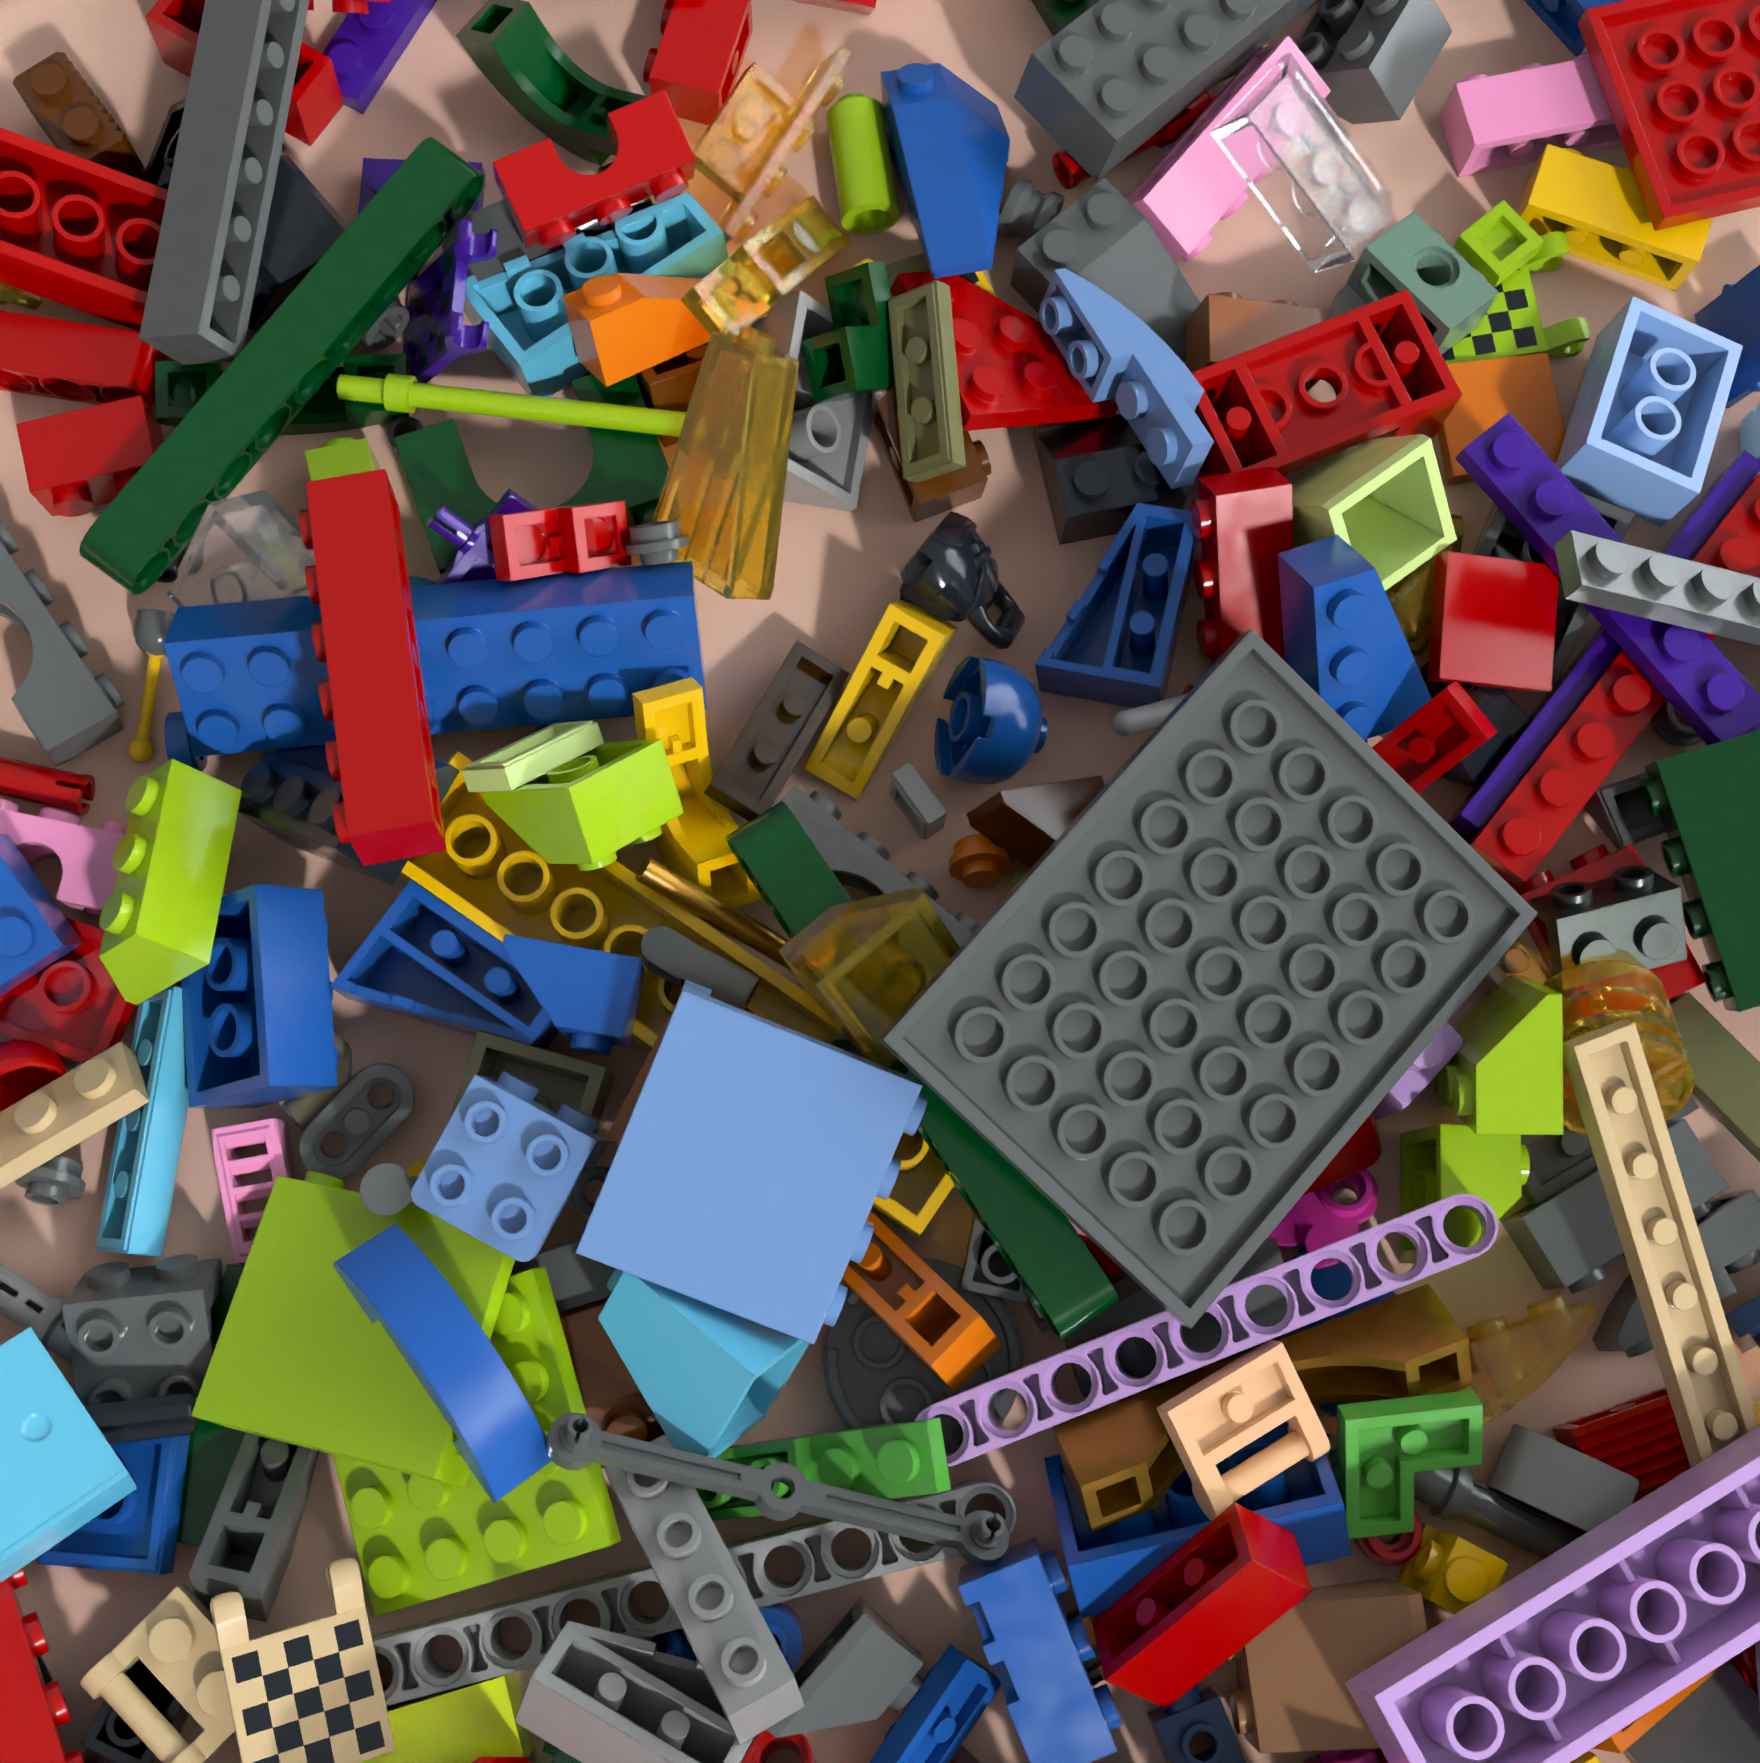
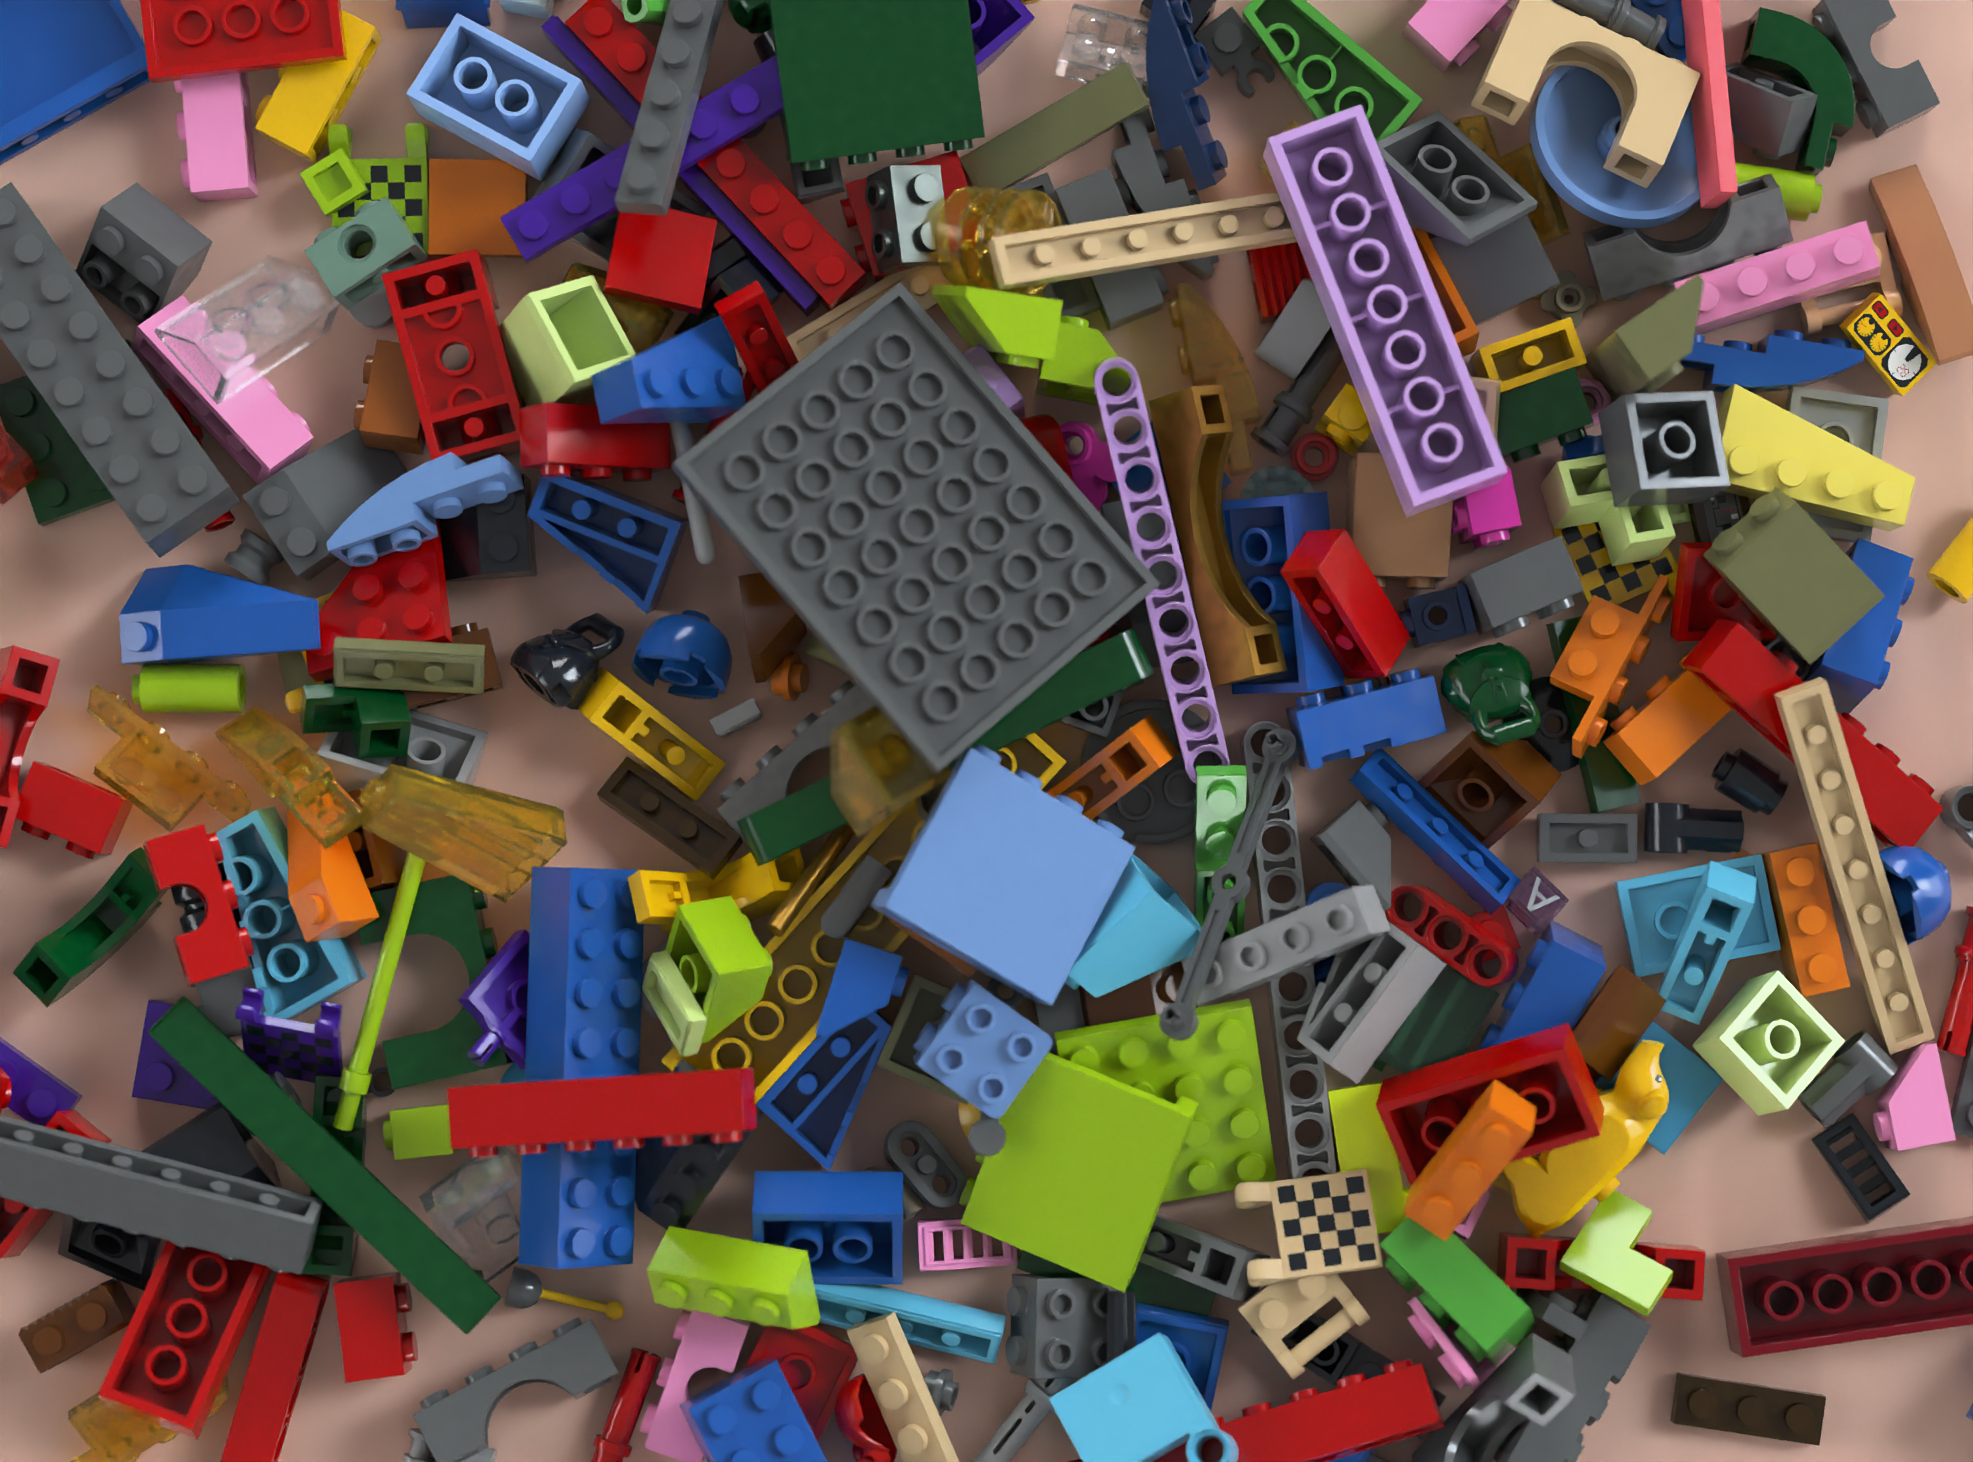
camera: 80 degrees left, 10 degrees up
(178, 742) = (617, 1274): blue tile -> none
(449, 1358) = (1109, 1100): blue slope -> none
(559, 540) = (504, 964): red slope -> none
(657, 542) = (514, 891): dark grey plate -> none
(1233, 1411) = (1218, 557): light nougat plate -> none
(1389, 1442) = (1252, 449): bright green plate -> none

